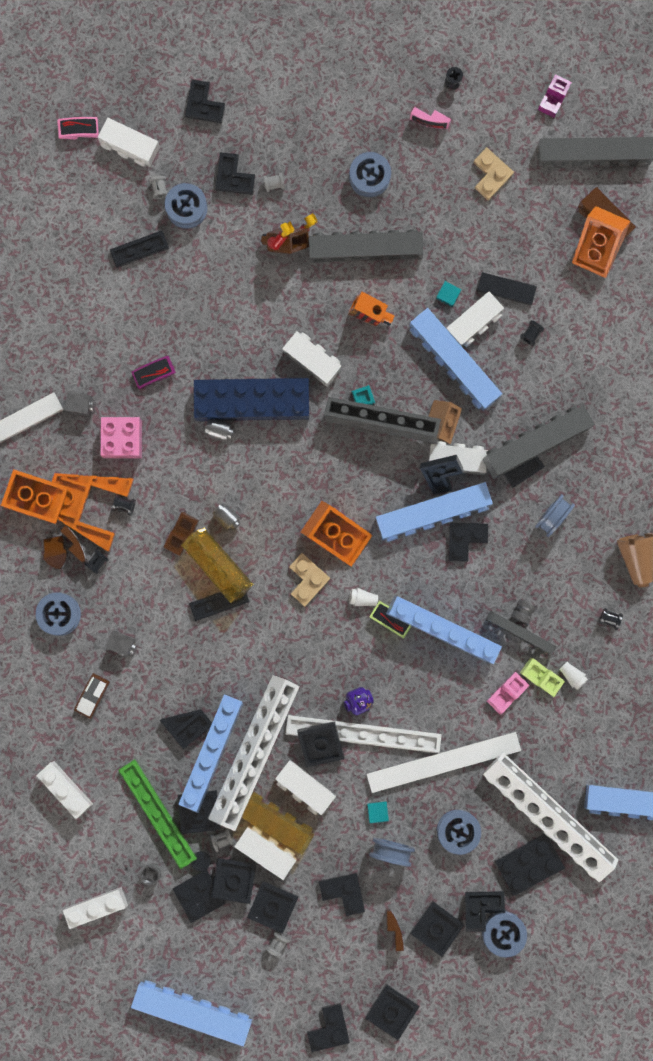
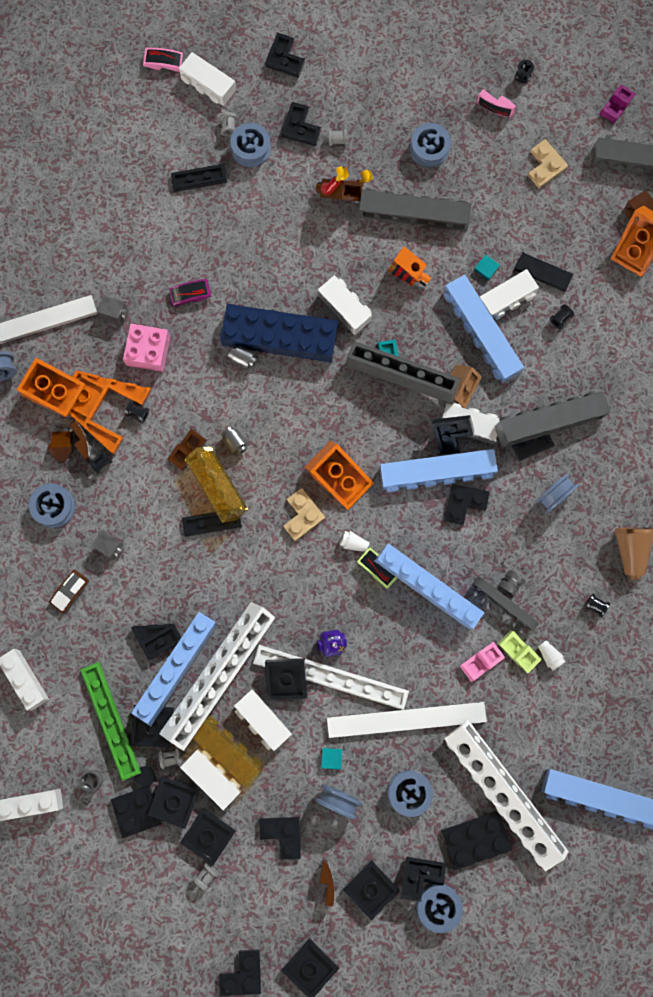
camera: 10 degrees right, 5 degrees down
(192, 1013) = (104, 932): light blue brick -> none

